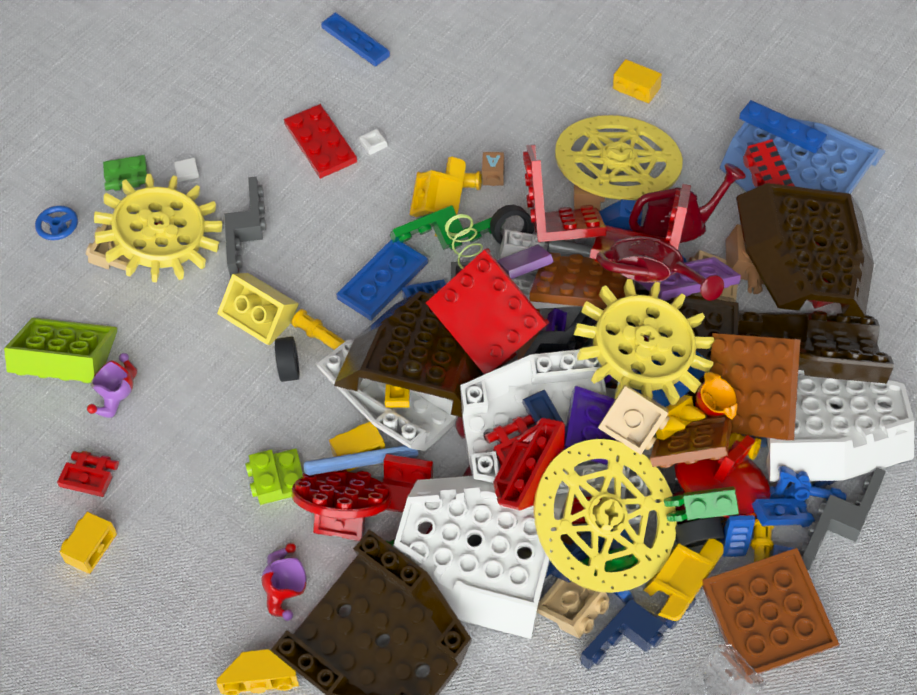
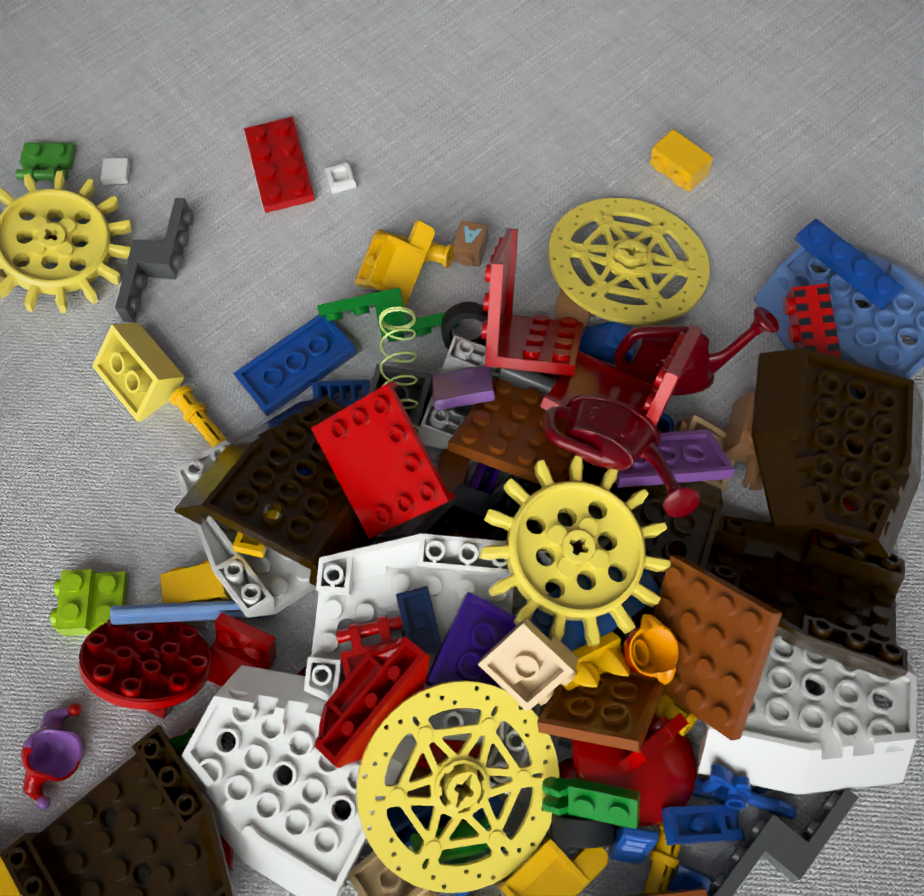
camera: 15 degrees right, 10 degrees up
(287, 359) = (145, 450): black tyre -> none
(355, 39) = (358, 41): blue plate -> none

